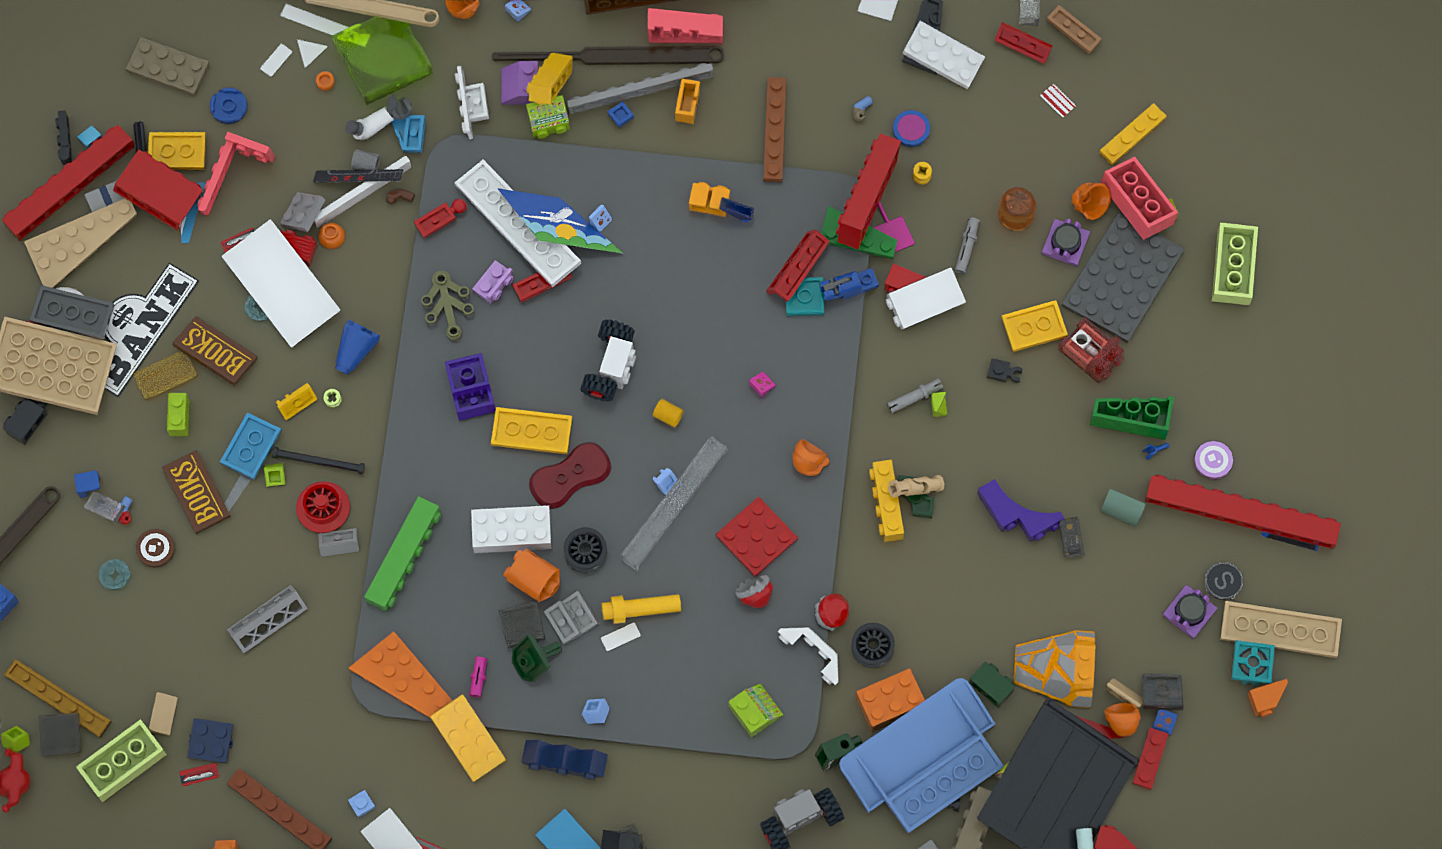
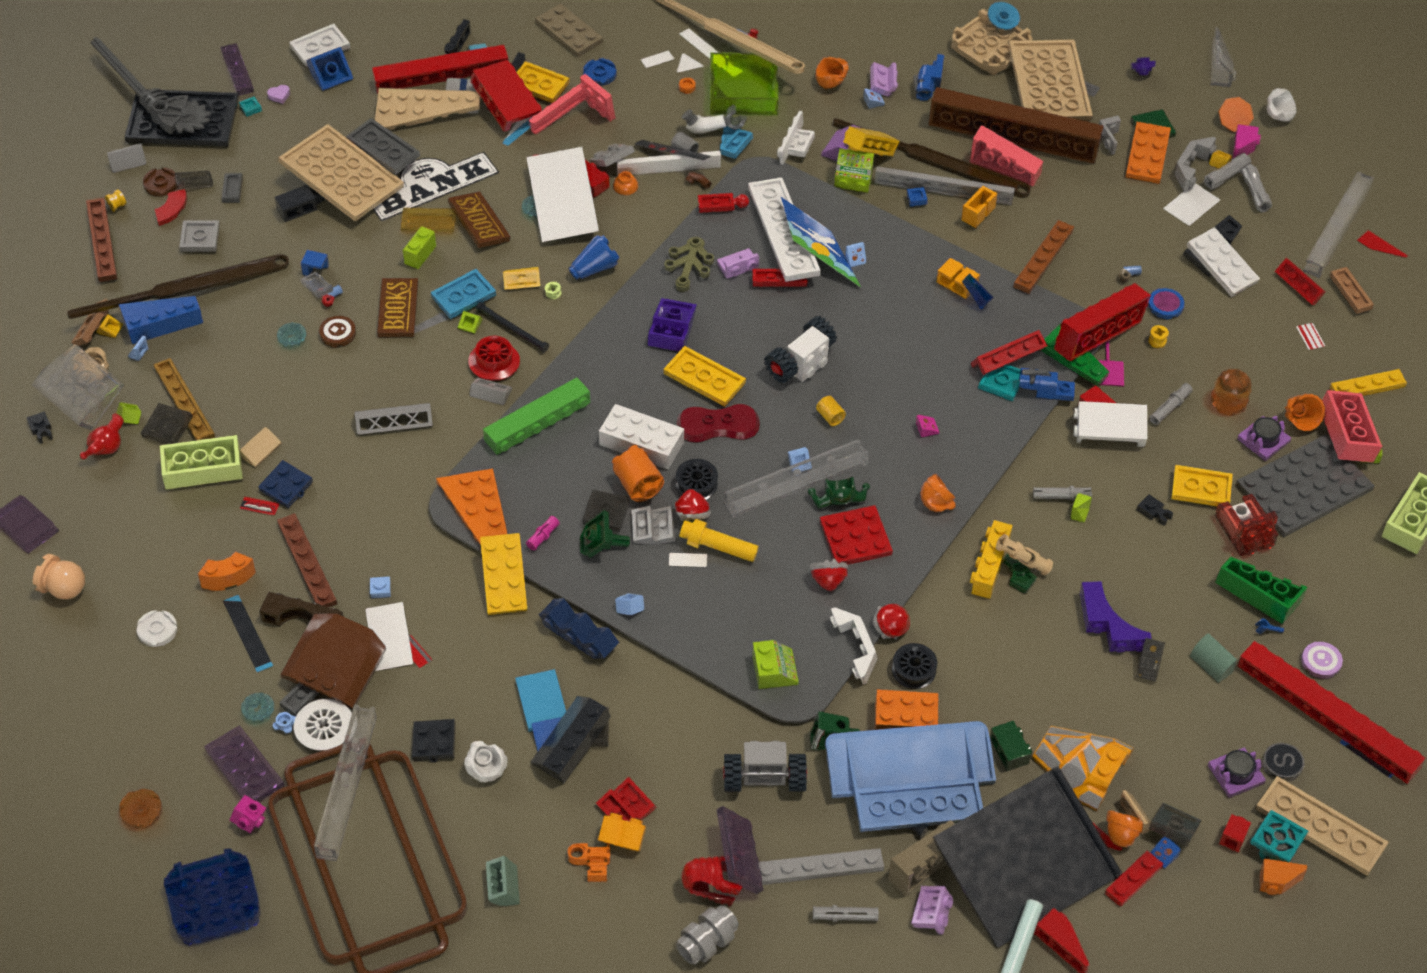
camera: 25 degrees right, 20 degrees down
(599, 585) = (692, 506): none -> red hair
(720, 499) = (839, 493): none -> dark green piece
(1214, 673) = (1235, 833): none -> red brick

